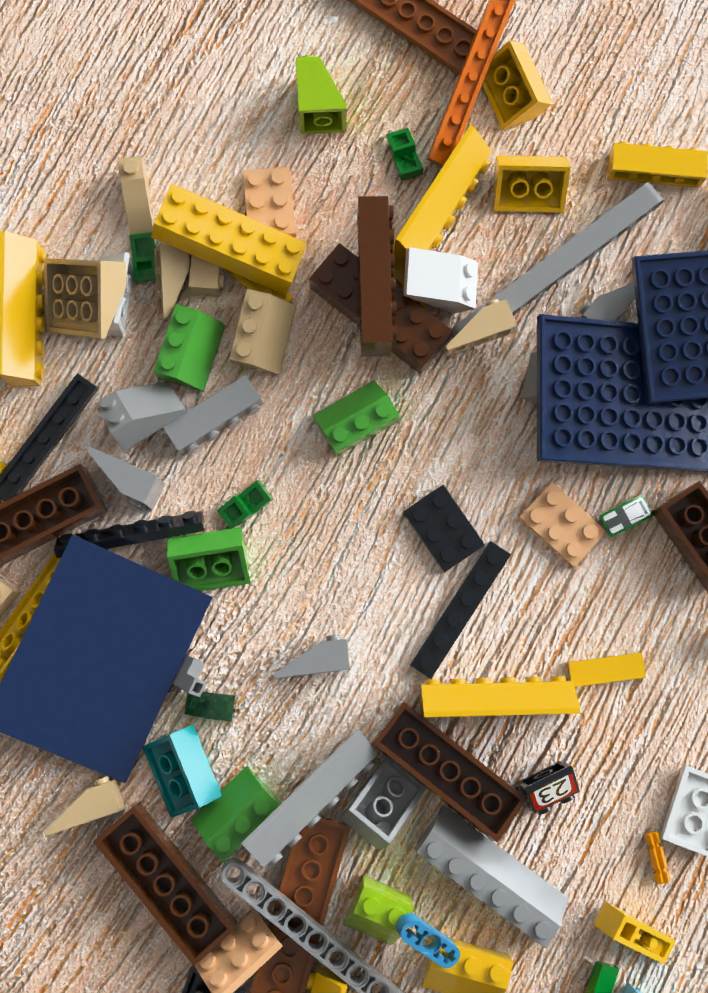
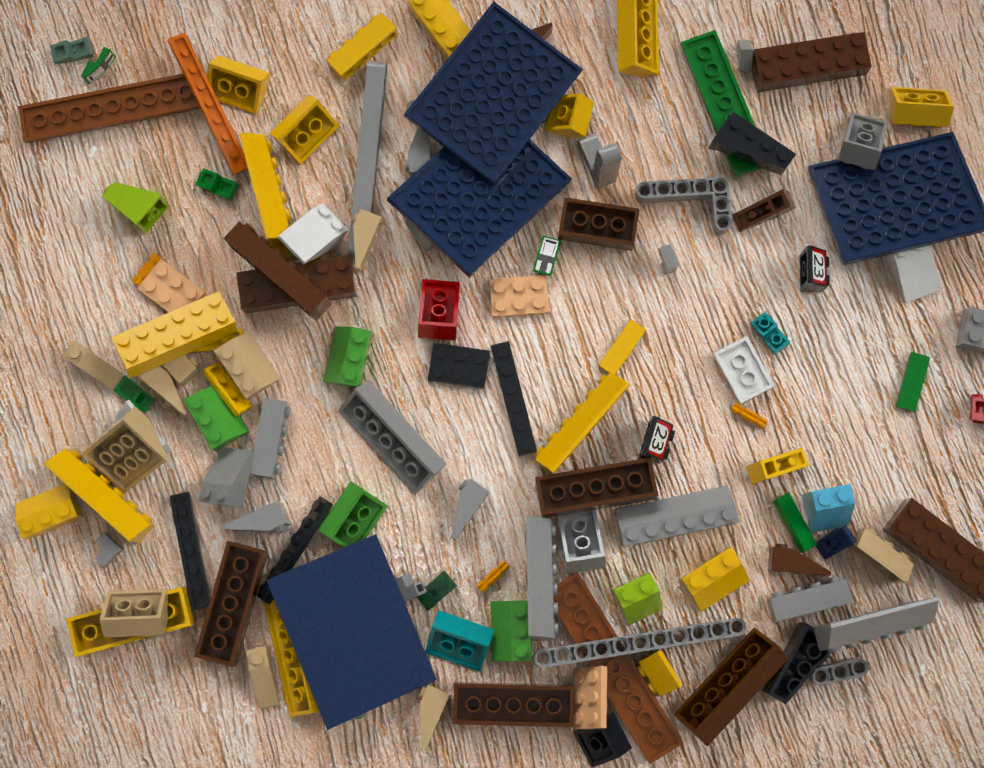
camera: 40 degrees left, 0 degrees up
(223, 334) = (227, 389): none -> yellow tile
(245, 504) = (339, 467): green slope -> none
(267, 162) = (146, 269): none -> light orange axle
(273, 746) = (493, 576): none -> light orange axle
(318, 527) = (391, 436): none -> light grey slope
(424, 930) = (667, 577): dark azure beam -> none
(478, 461) = (438, 309): none -> red slope

